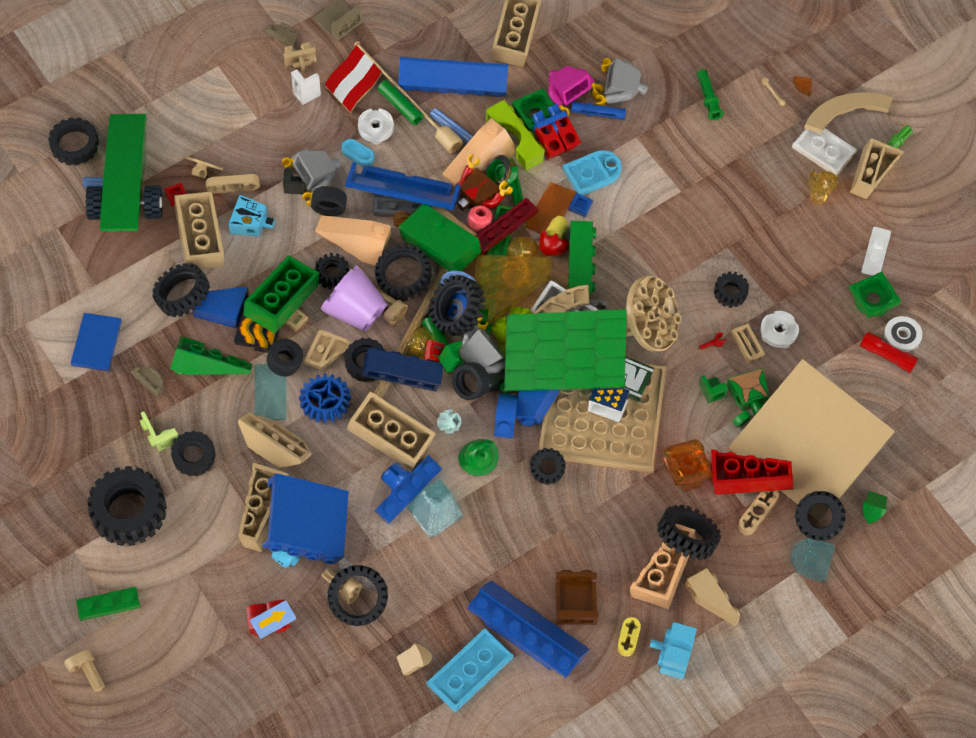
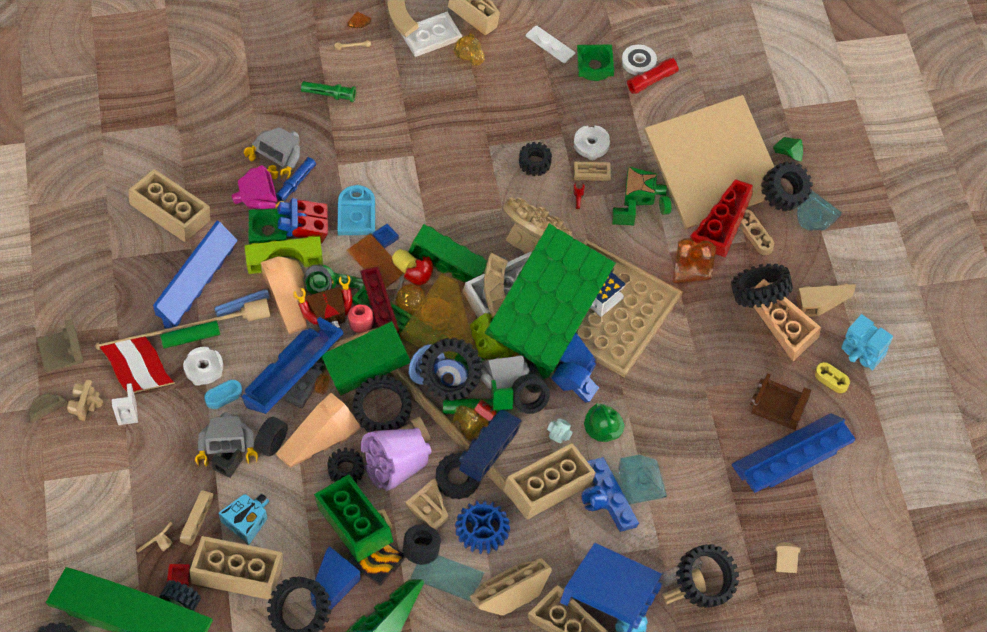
camera: 65 degrees left, 5 degrees down
(469, 670) = (812, 517): medium azure tile -> none
(539, 474) = (635, 376): black tyre -> none

